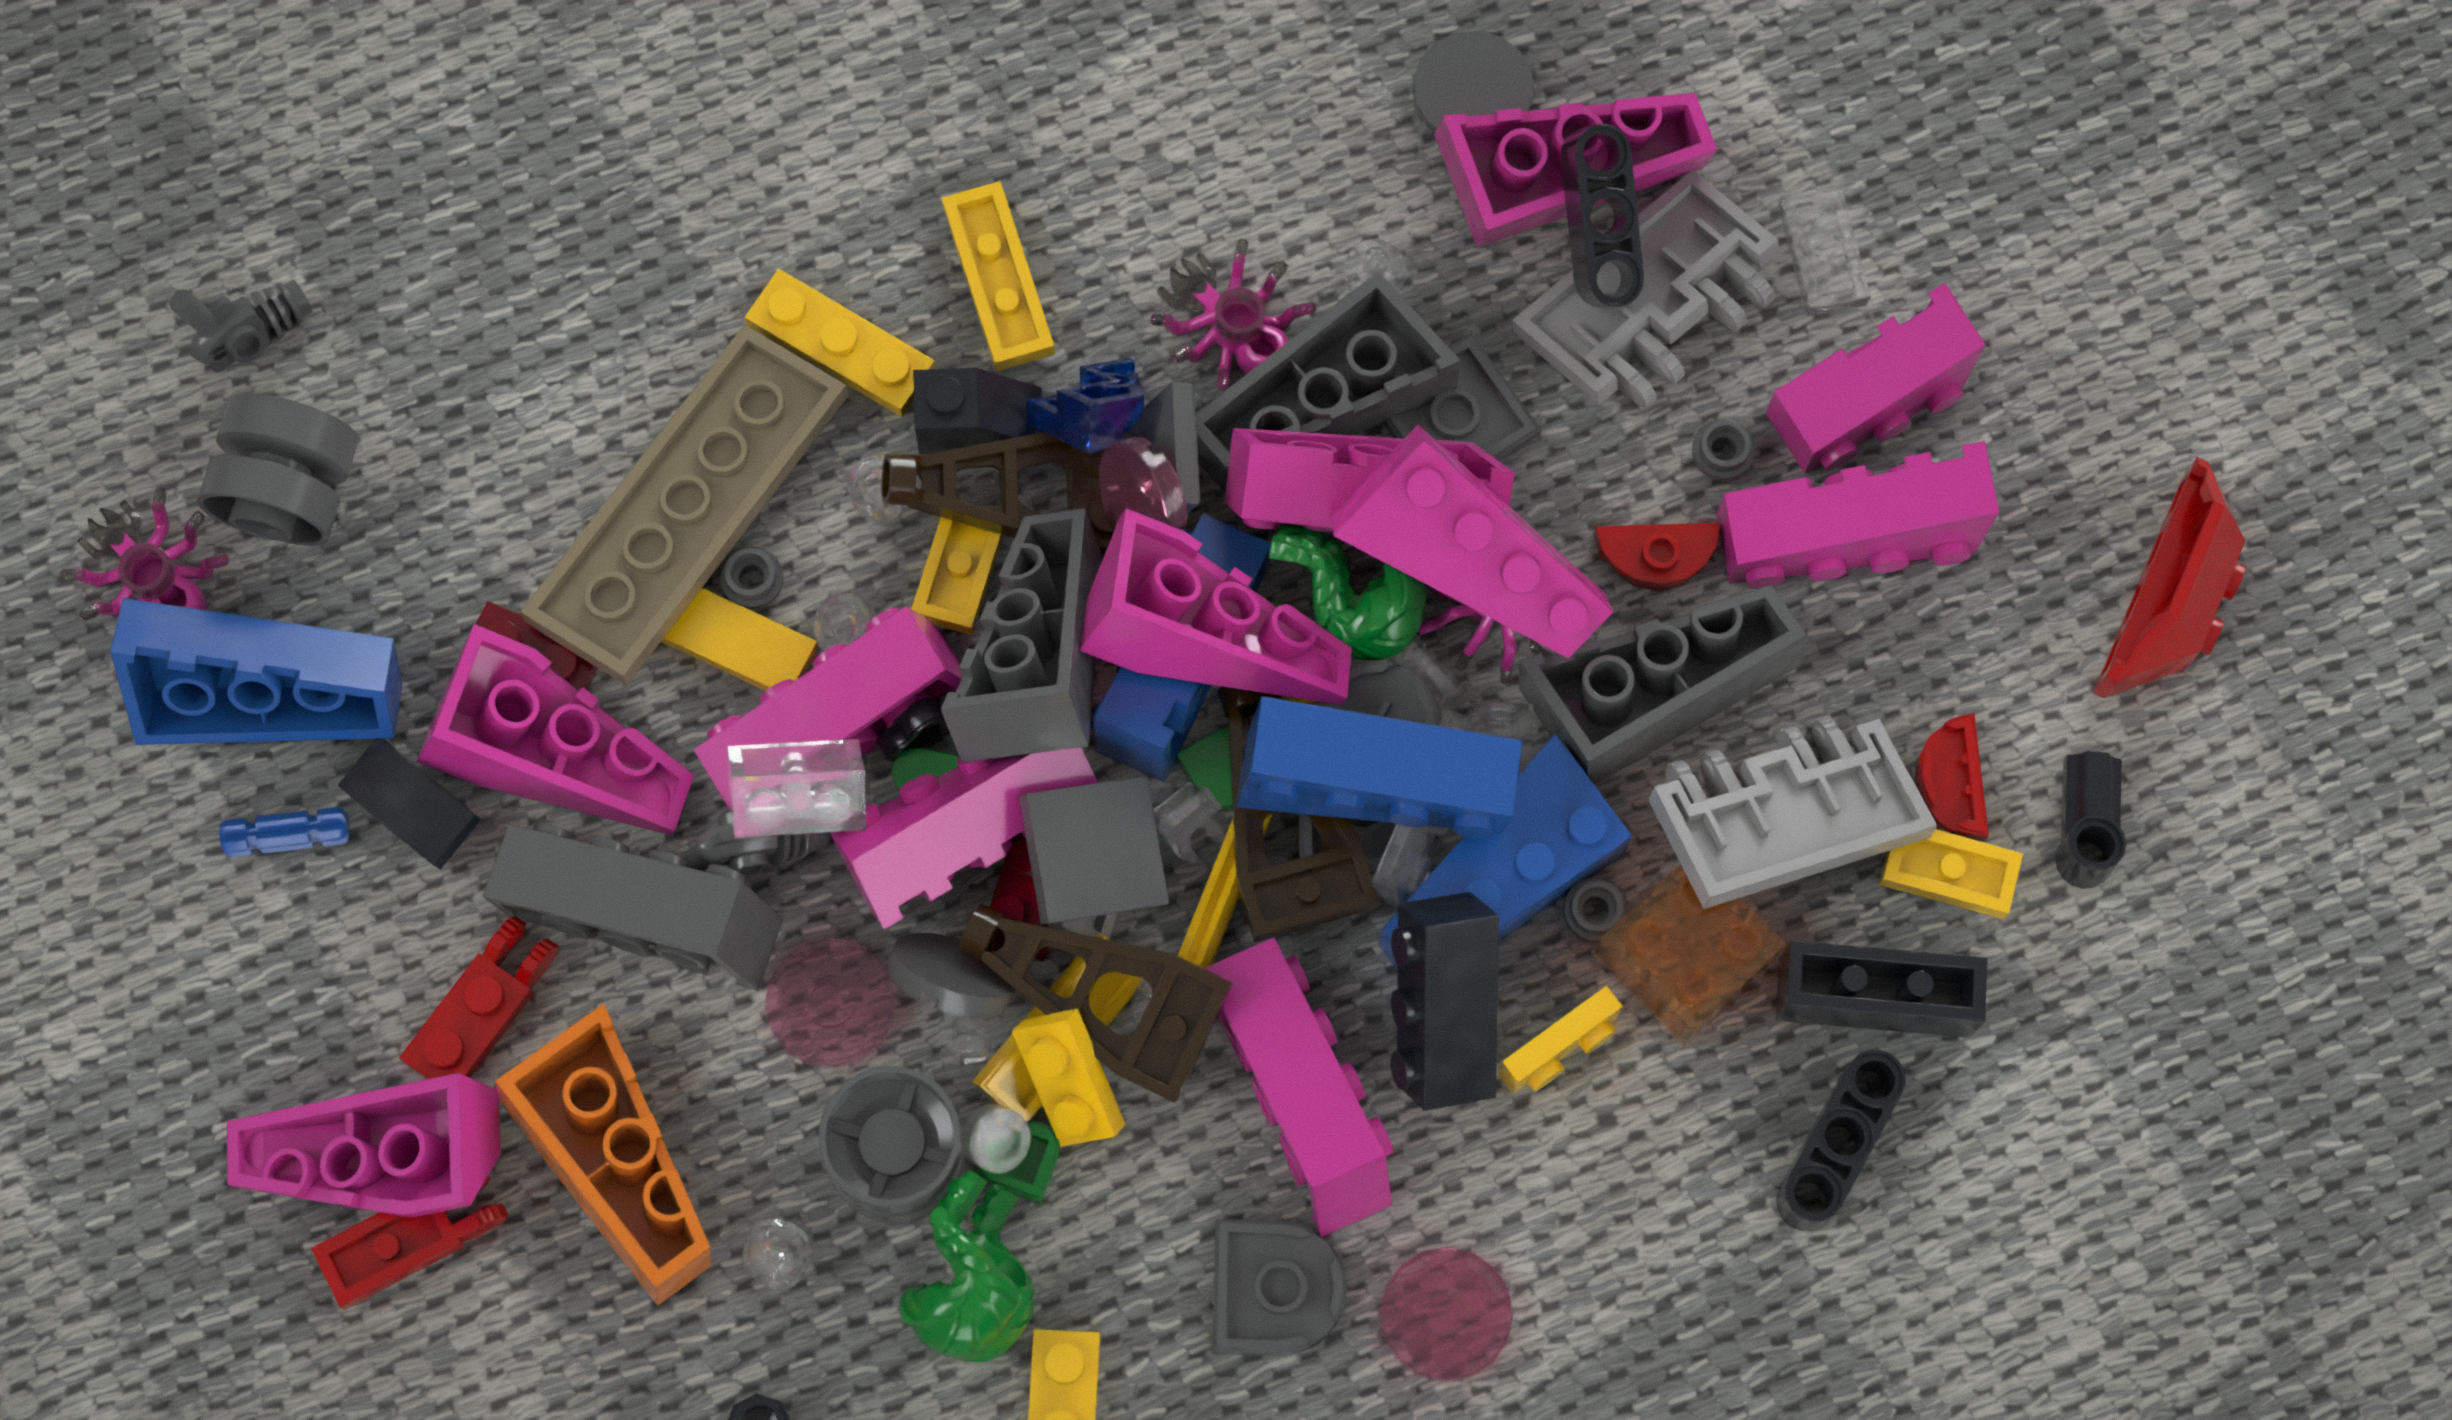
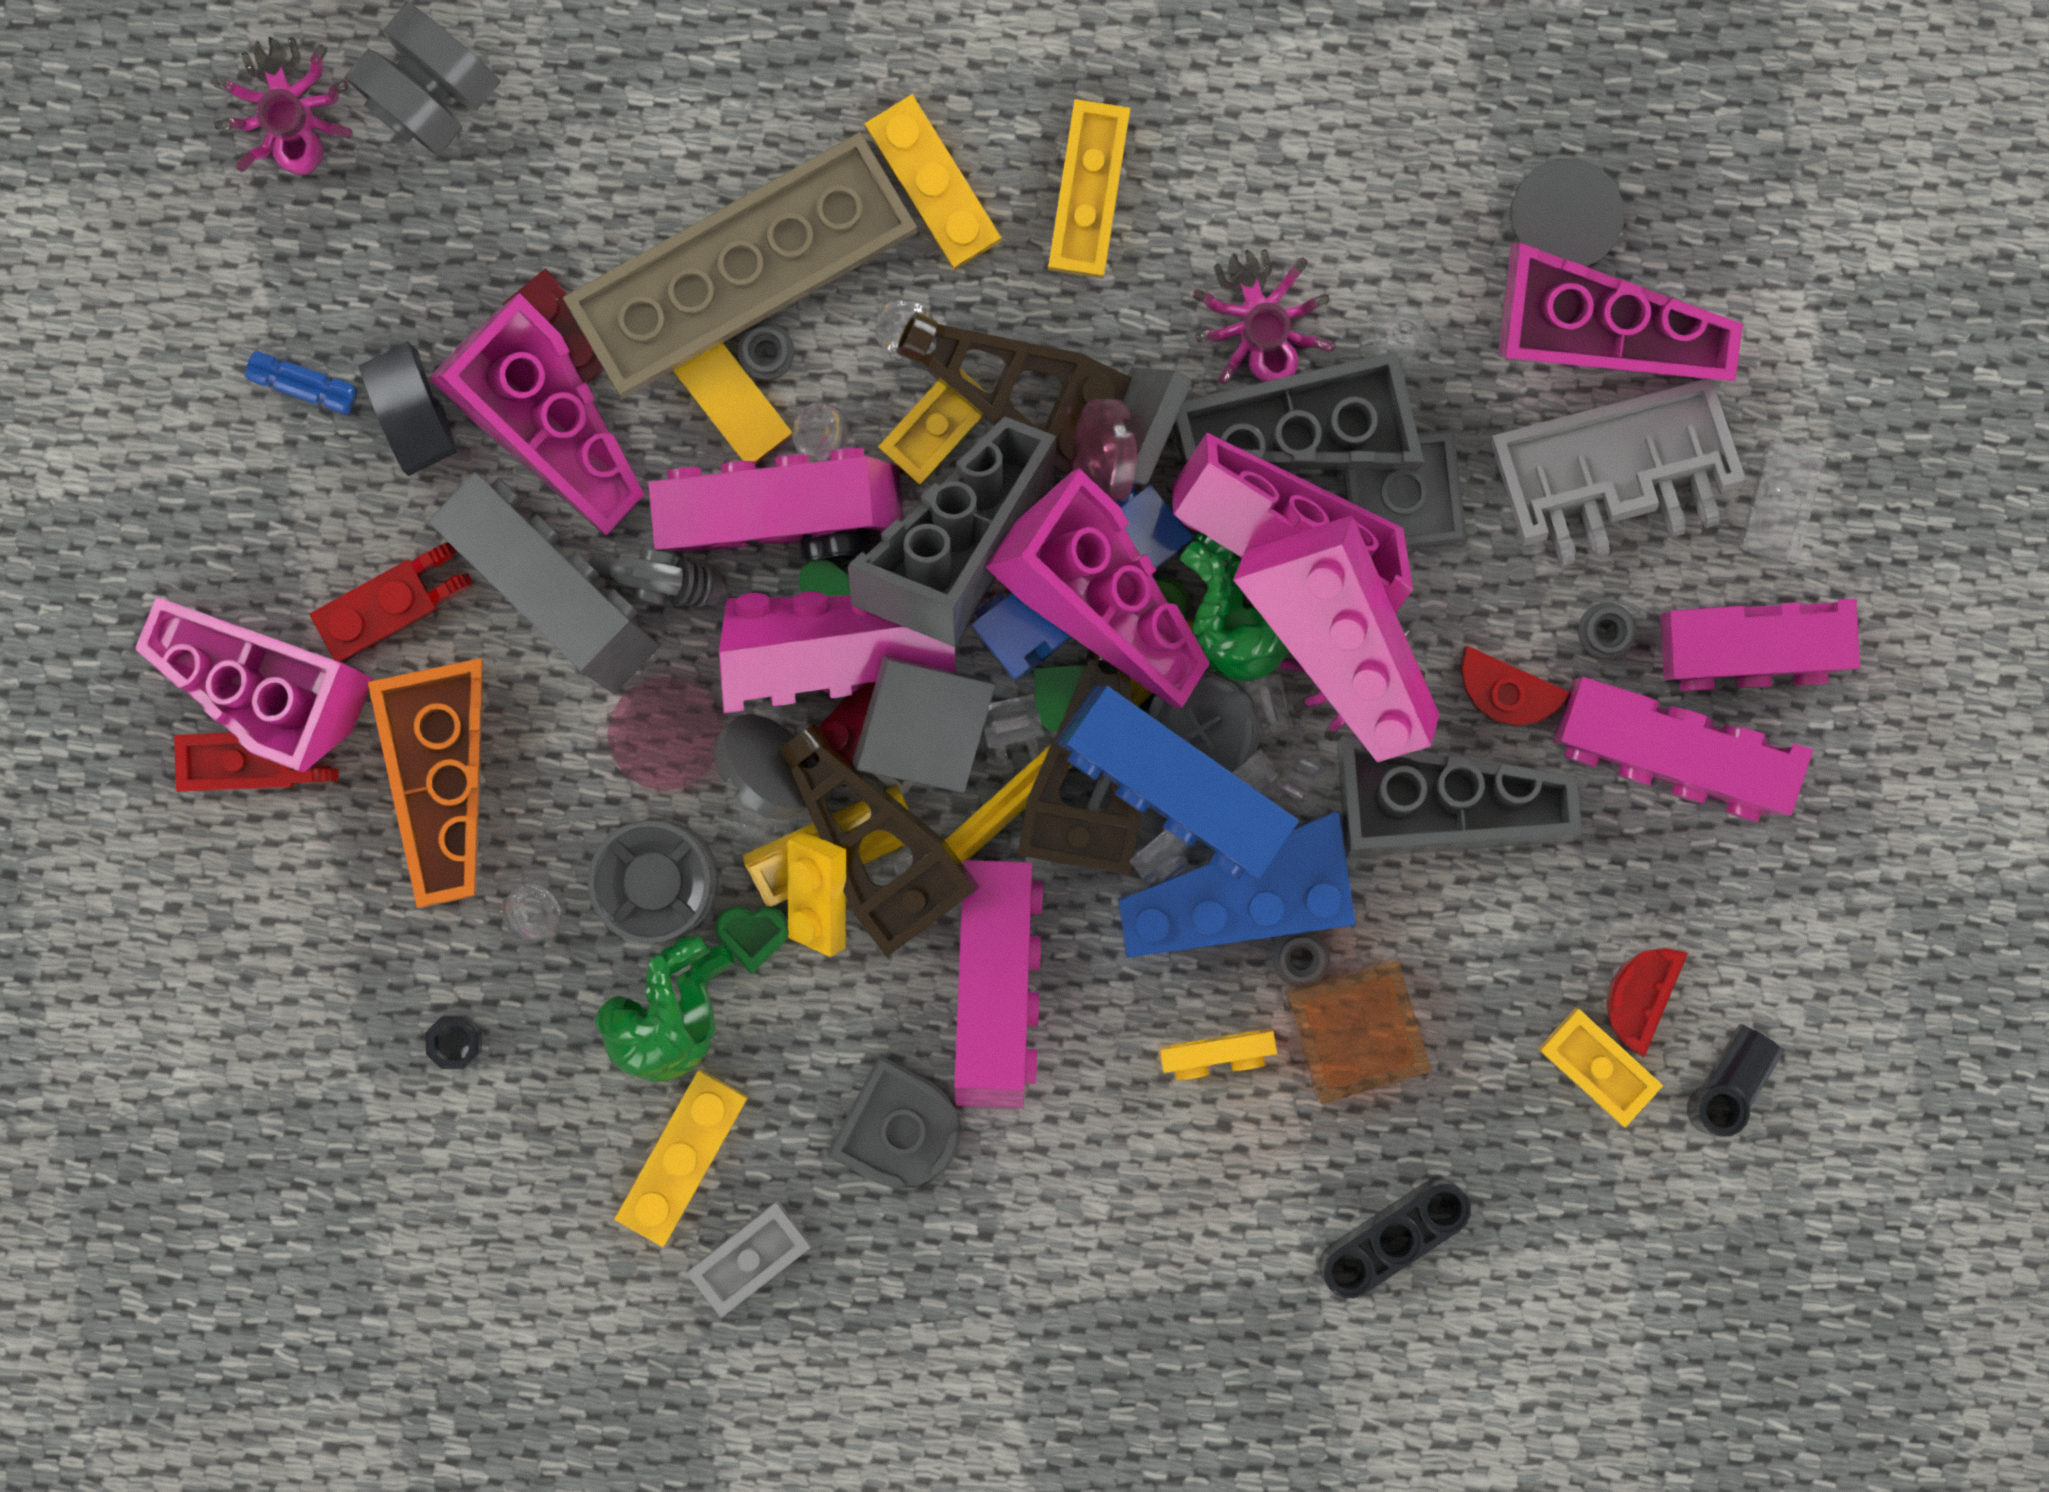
camera: 30 degrees right, 15 degrees up
(250, 678) = (325, 248): blue wedge -> none
(796, 788) = (709, 563): clear brick -> none
(969, 408) = (1013, 300): black slope -> none
(995, 1138) = (737, 912): clear tile -> none
(1095, 411) = (1109, 354): clear blue slope -> none
(1446, 1000) = (1138, 985): black brick -> none
(1446, 1314) = (1019, 1215): clear pink tile -> none
(1622, 241) = (1608, 423): black beam -> none
(1792, 812) = (1497, 969): light grey hinge -> none
(1881, 989) = (1489, 1140): black brick -> none
(2179, 587) = (1914, 931): red wedge -> none

